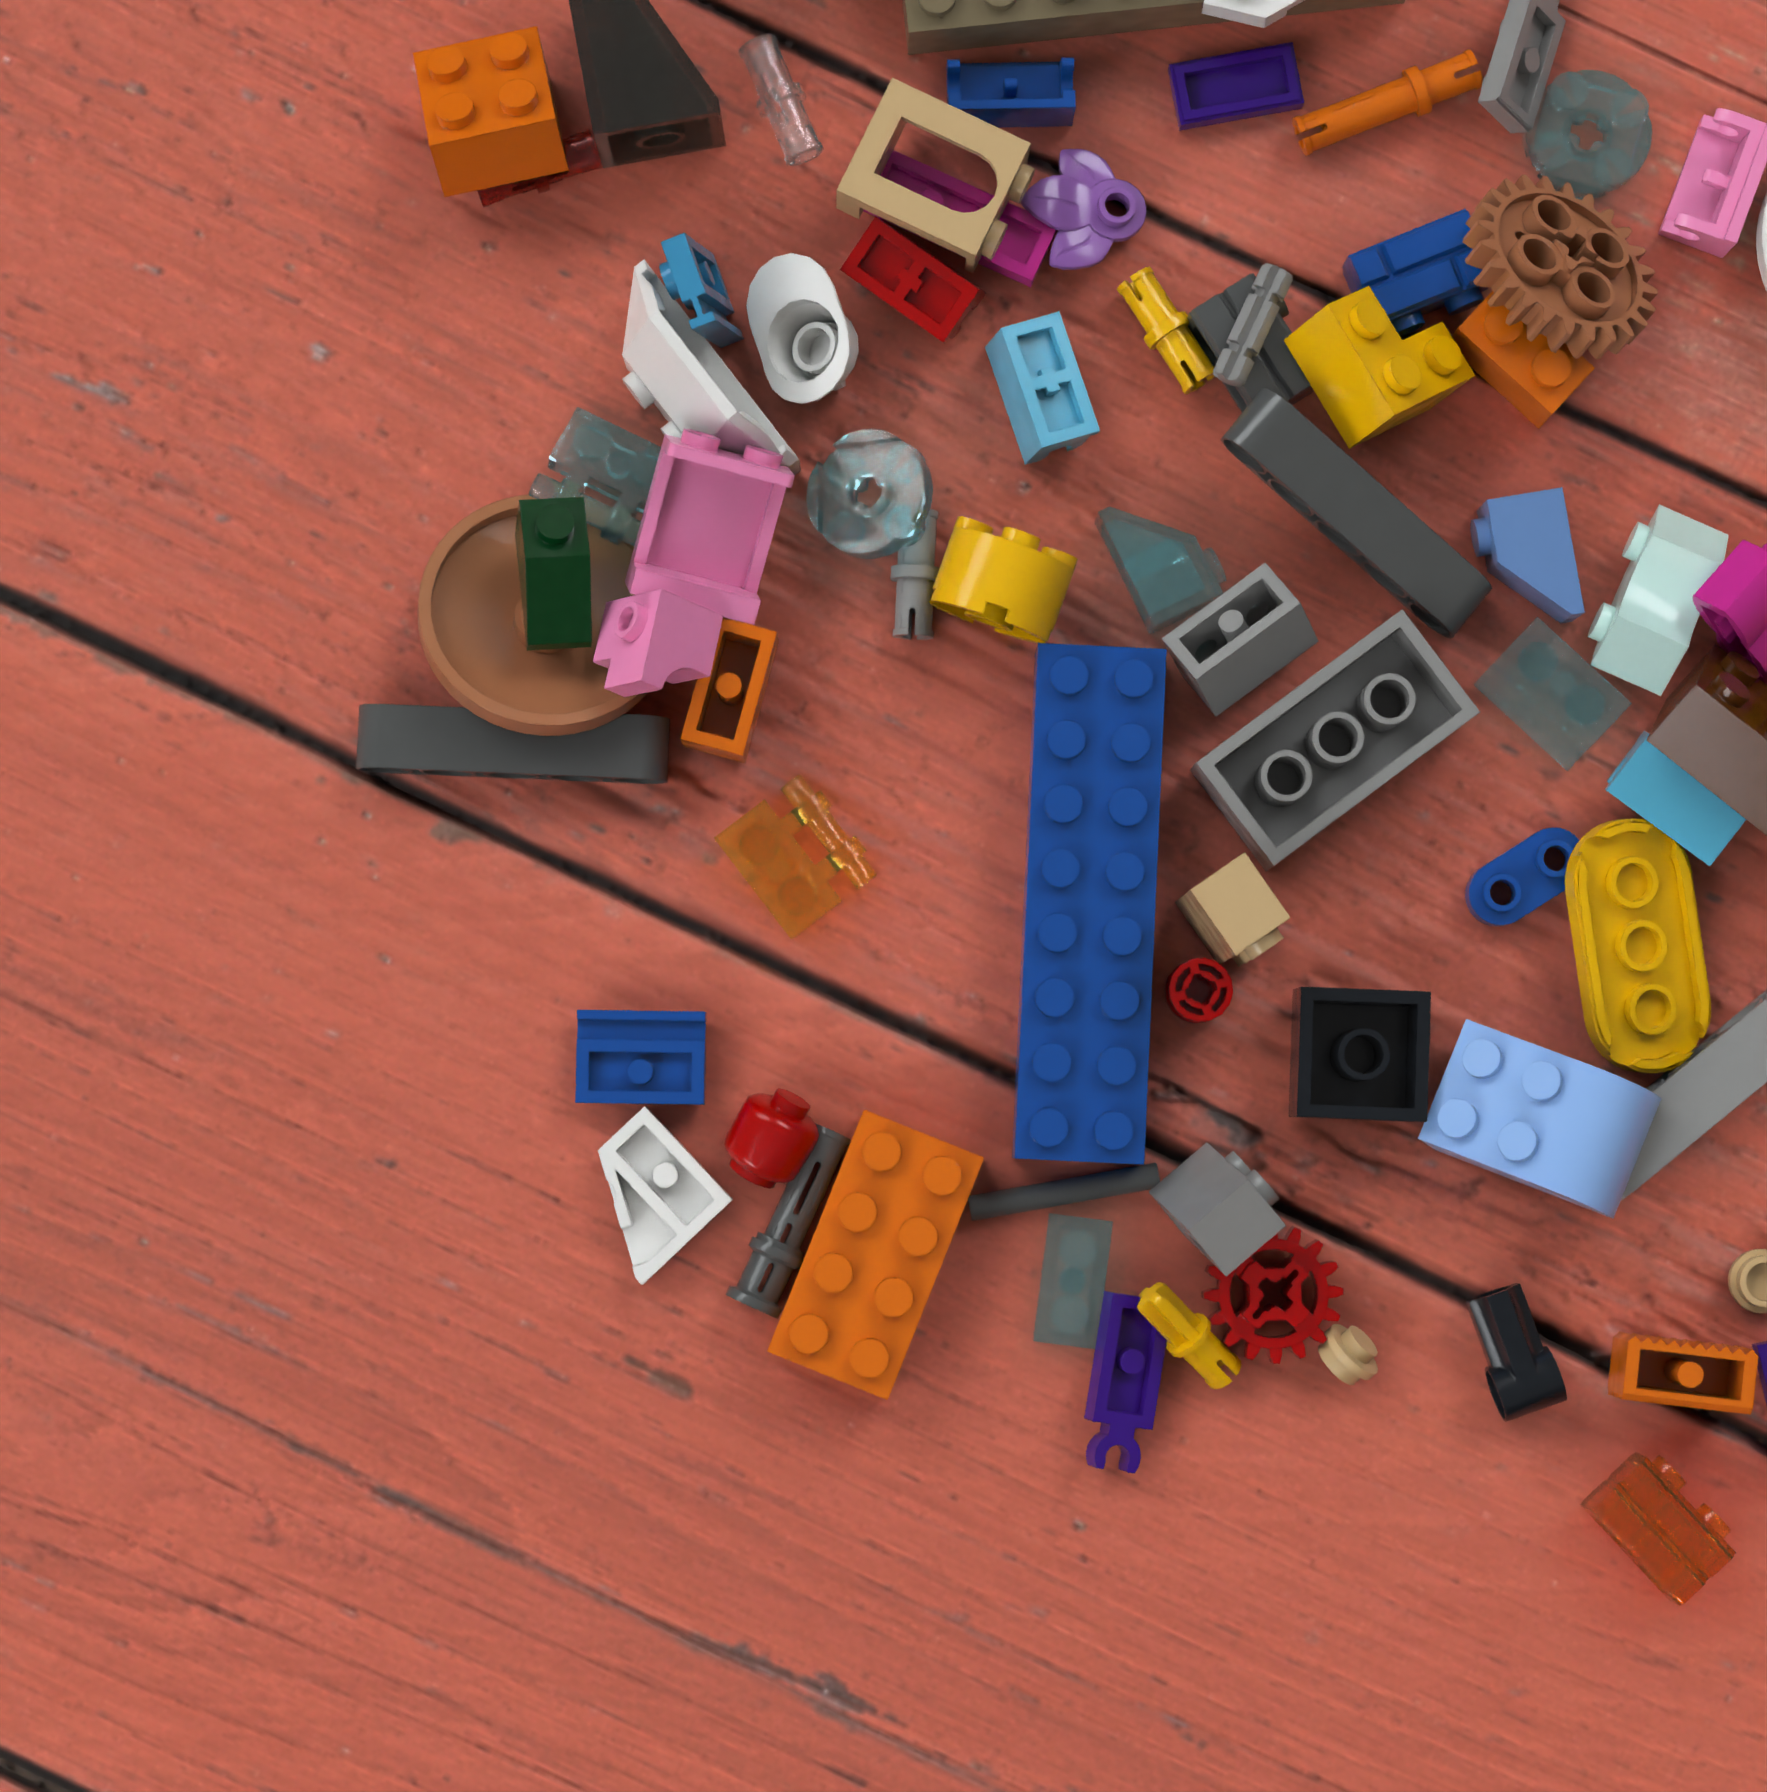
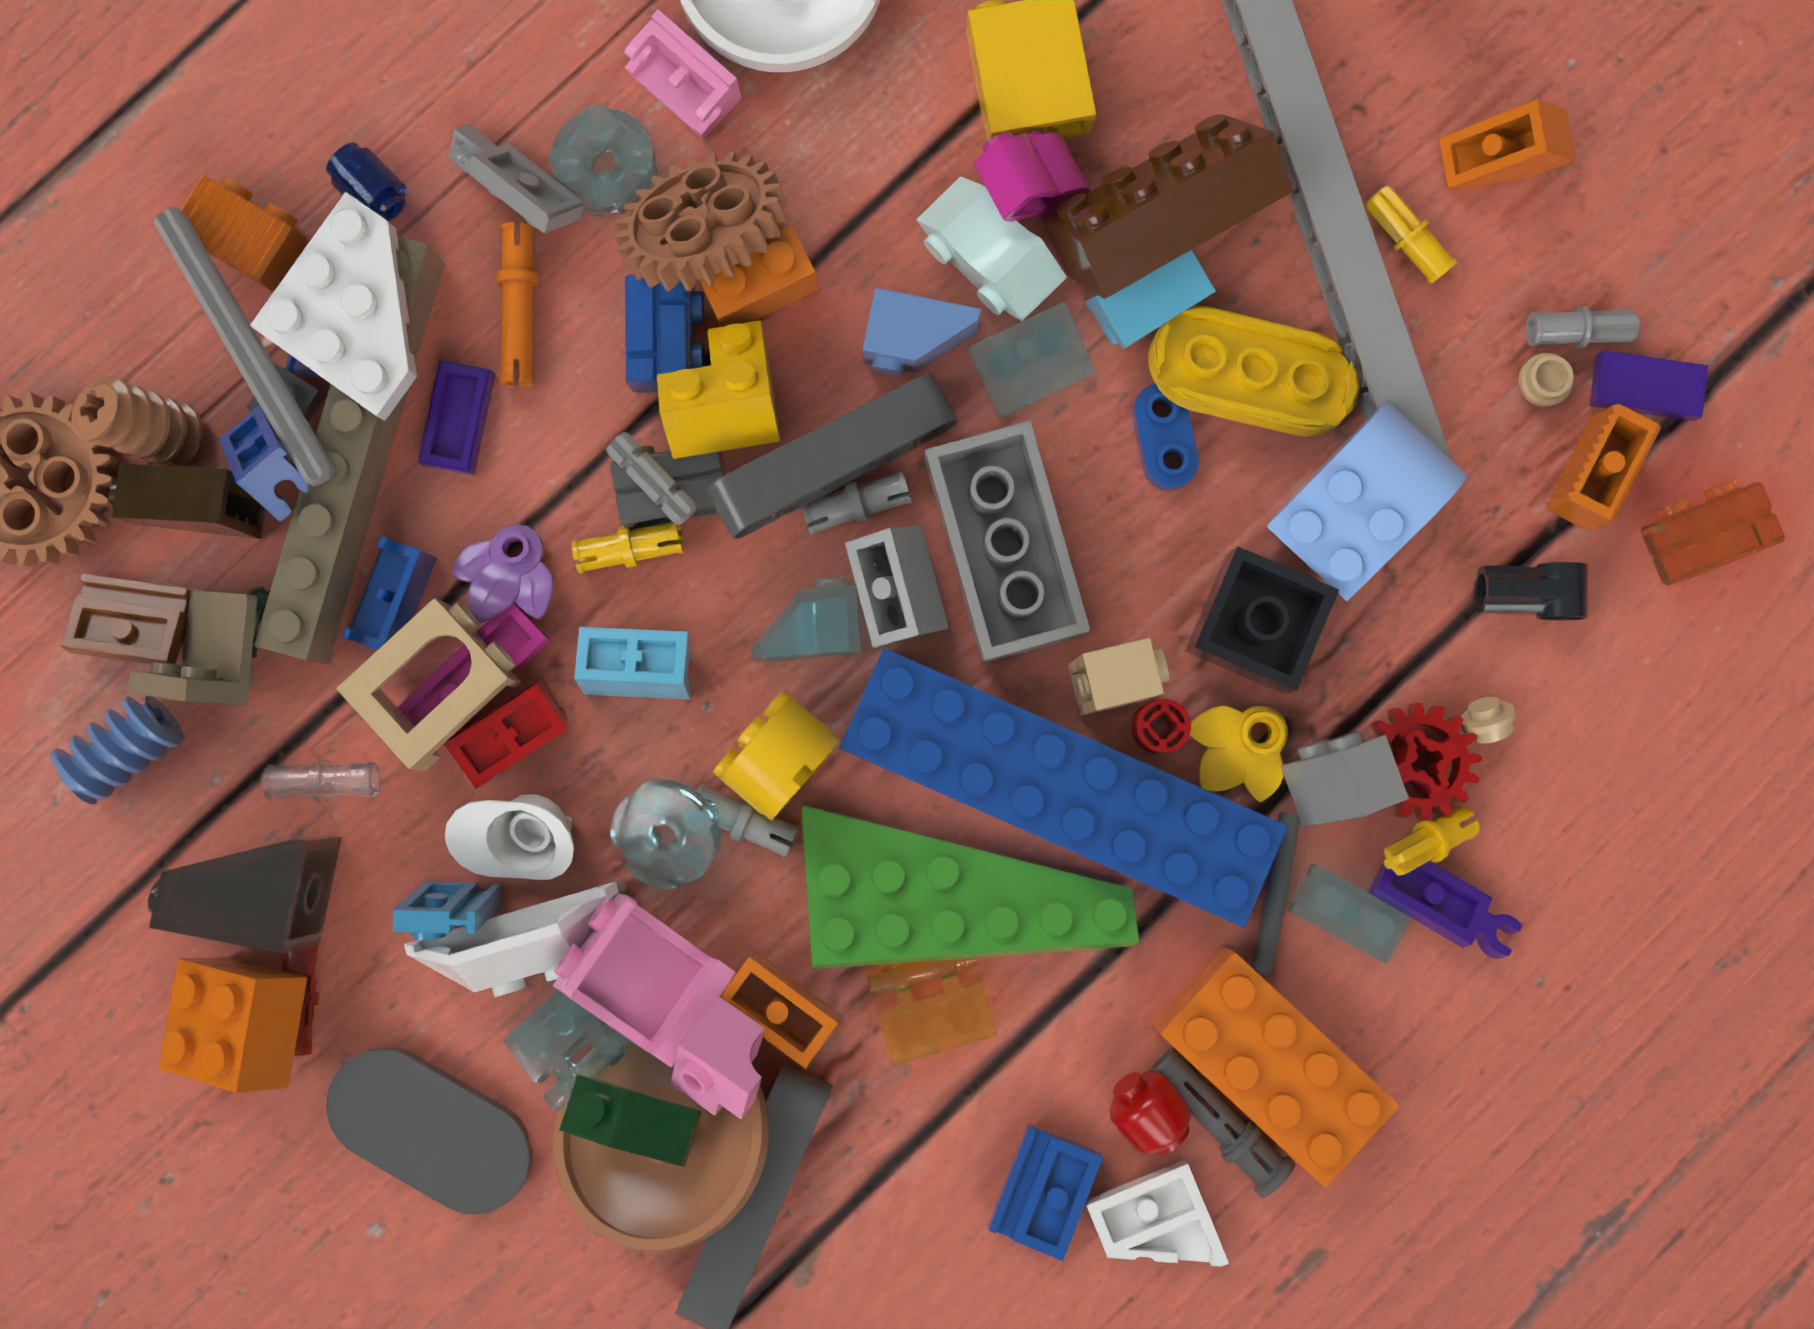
camera: 65 degrees left, 0 degrees up
(450, 366) = (429, 1130): none -> dark grey tile
(907, 799) = (918, 898): none -> bright green wing
(1198, 1087) = (1233, 754): none -> yellow plate
(1315, 562) = (857, 502): none -> light grey pin

